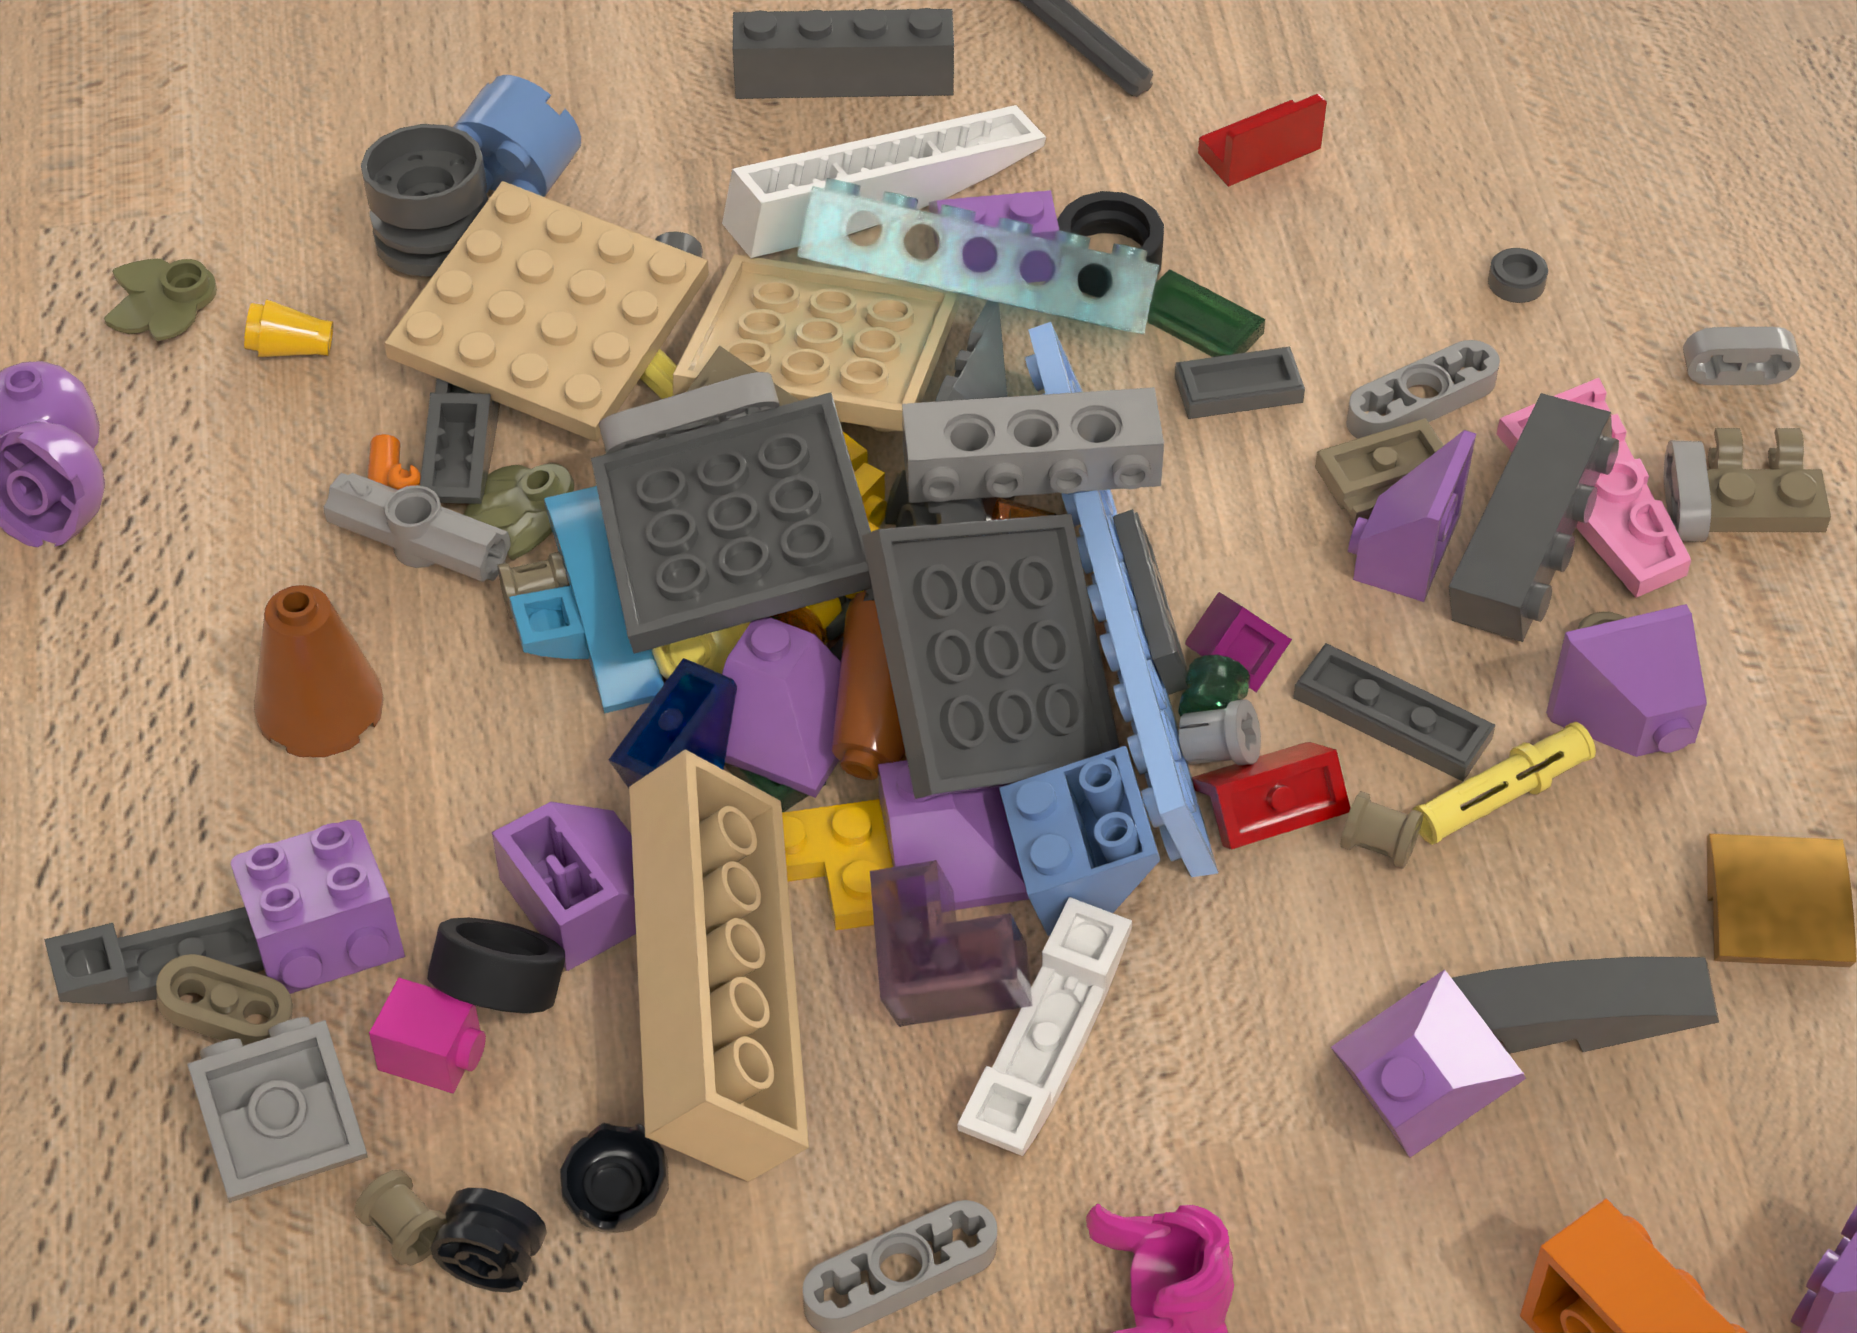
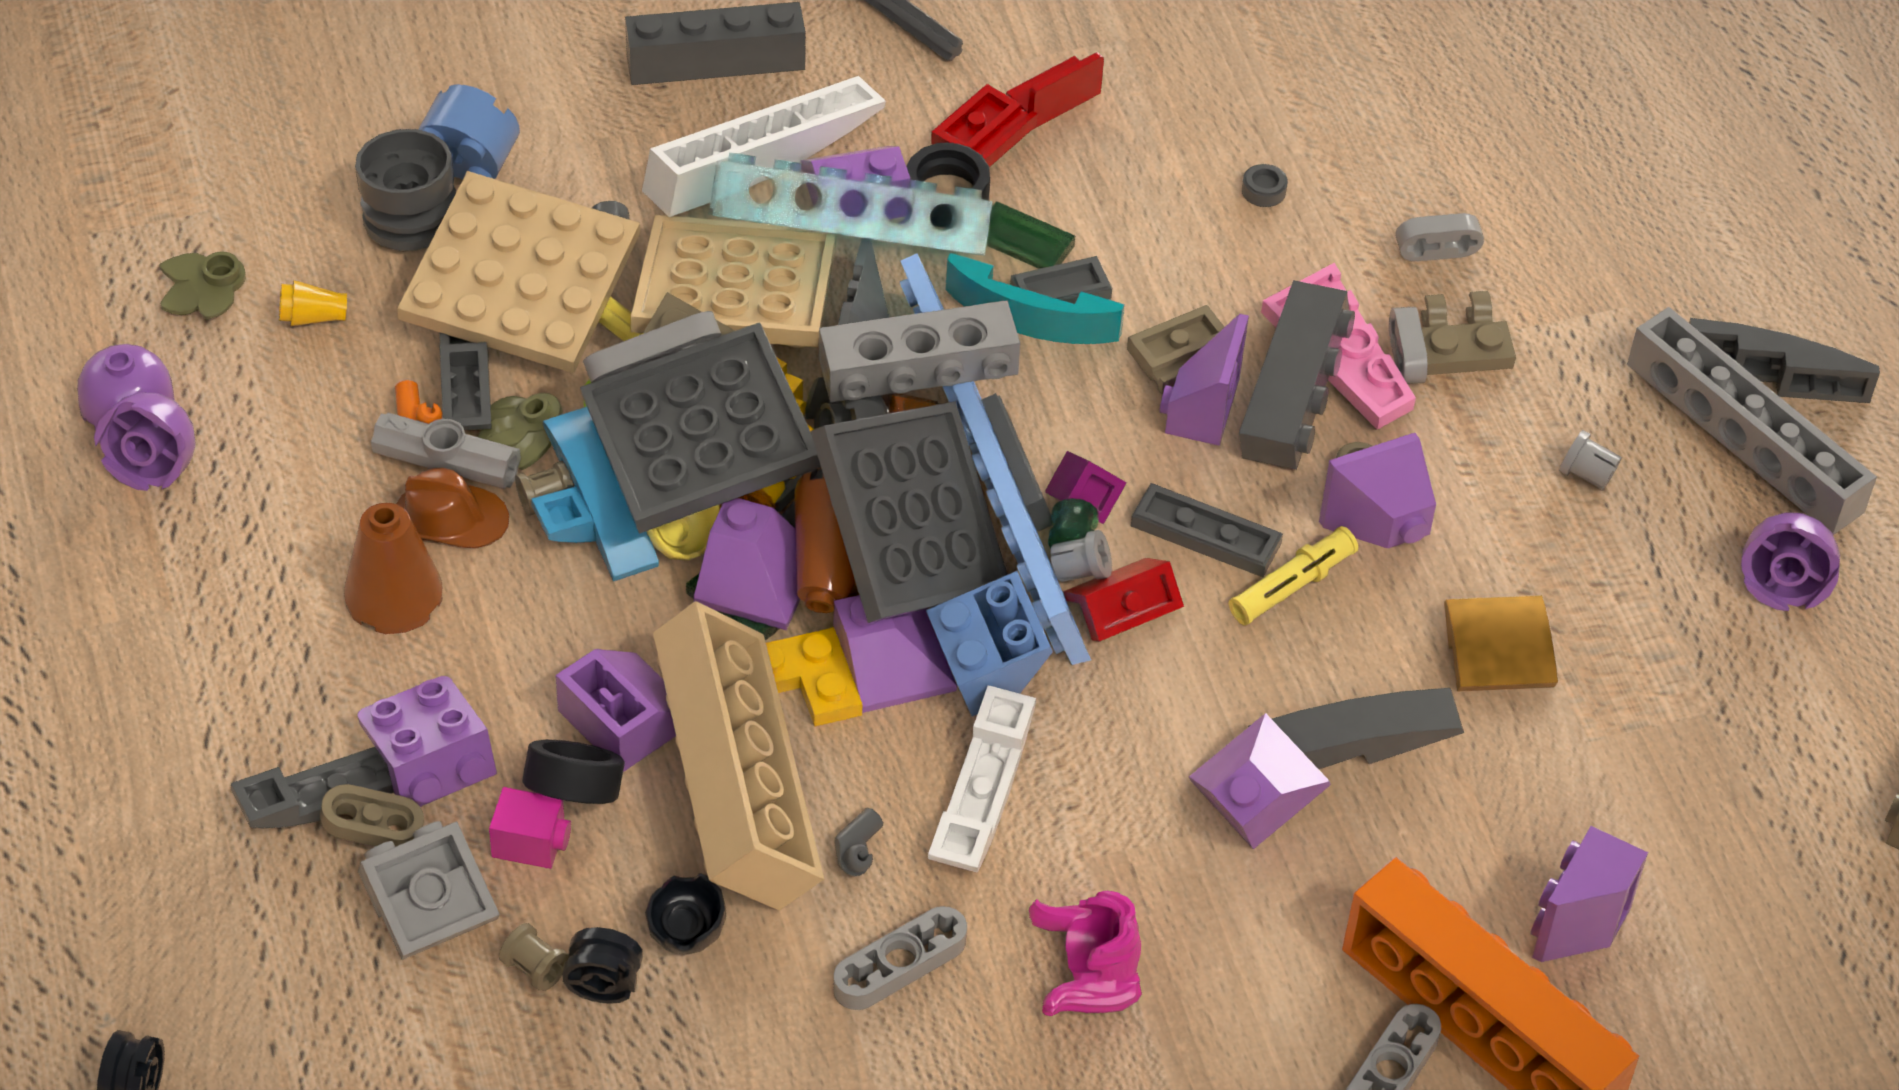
camera: 10 degrees left, 0 degrees up
(410, 604) = (453, 511): none -> dark orange piece
(686, 714) = (684, 576): clear blue slope -> none
(858, 1097) = (851, 842): none -> dark grey arm
(940, 965) = (899, 742): brick -> none
(1170, 174) = (987, 124): none -> red plate
(1265, 428) = (1036, 315): none -> teal slope
(1381, 829) = (1208, 617): dark tan bush -> none
(1435, 371) = (1209, 266): light grey beam -> none

